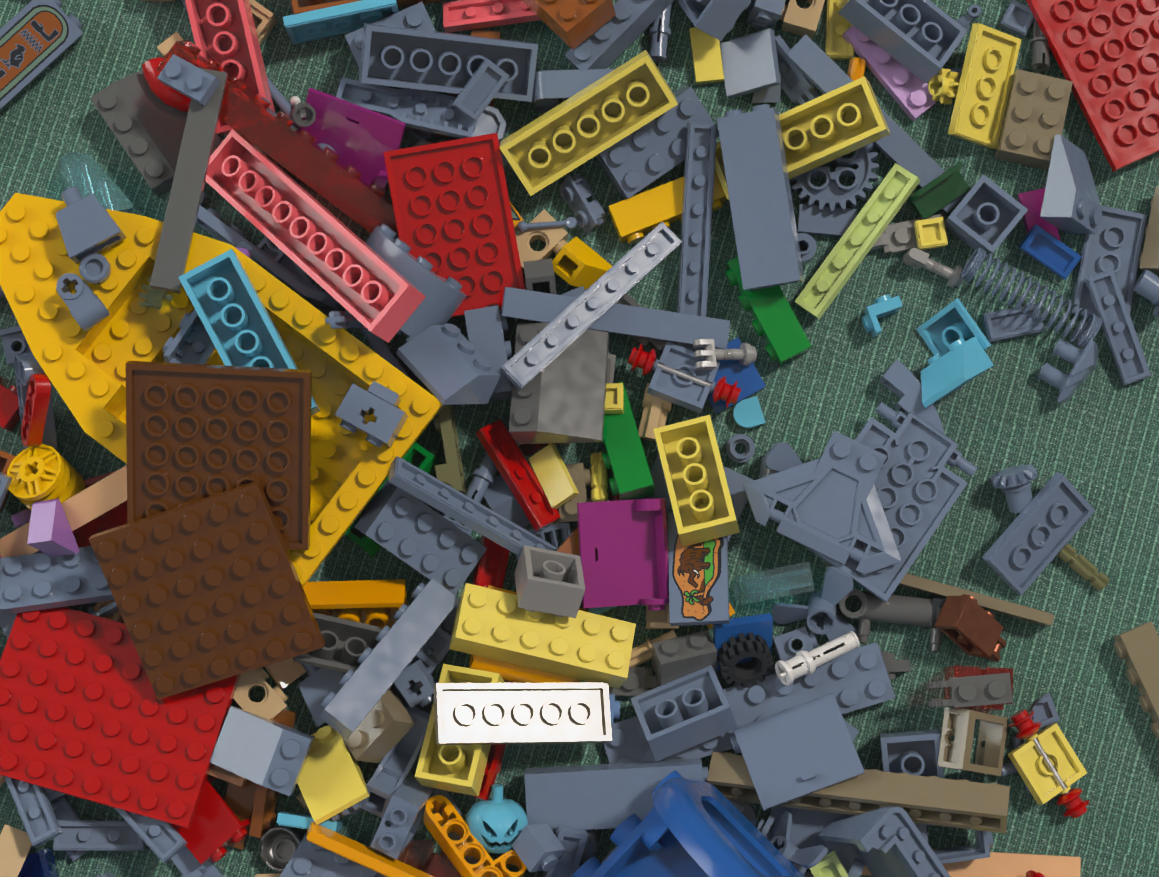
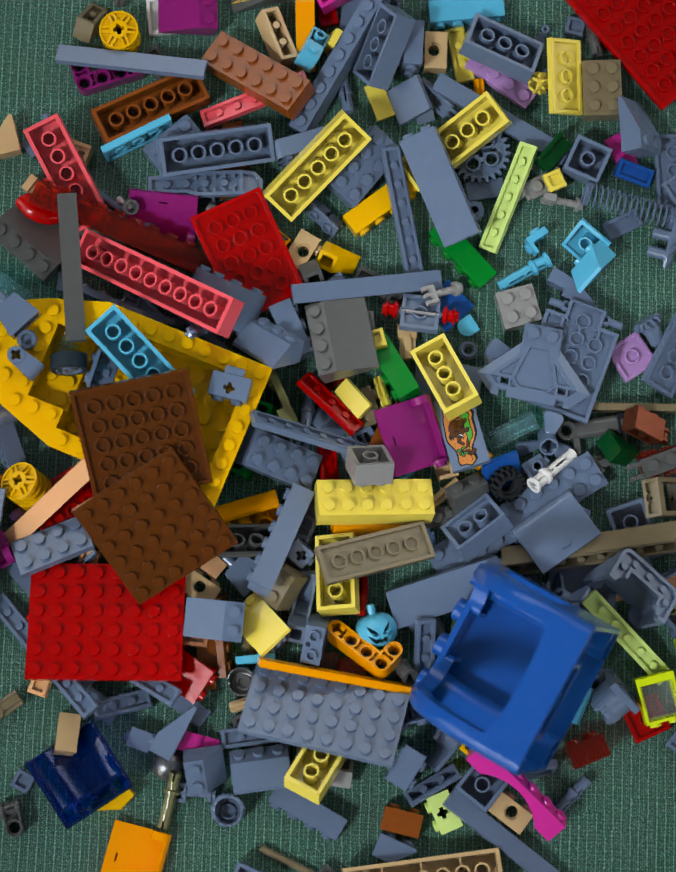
camera: 15 degrees left, 0 degrees up
(35, 410) = (10, 440): red beam -> none
(51, 530) = (40, 514): medium lavender slope -> none
(147, 318) = (68, 363): none -> black wheel
(189, 80) = (53, 203): sand blue plate -> none
(480, 89) = (241, 161): sand blue tile -> none
(538, 847) = (406, 635): sand blue brick -> none
(570, 223) = (320, 233): sand blue hinge -> none
(590, 306) = (349, 282): tile -> none
(828, 405) = (517, 307): none -> light grey brick
(865, 352) = (532, 268): none -> medium azure pin
(920, 650) = (616, 448): none -> dark green slope
(977, 519) = (631, 357): none -> lavender tile

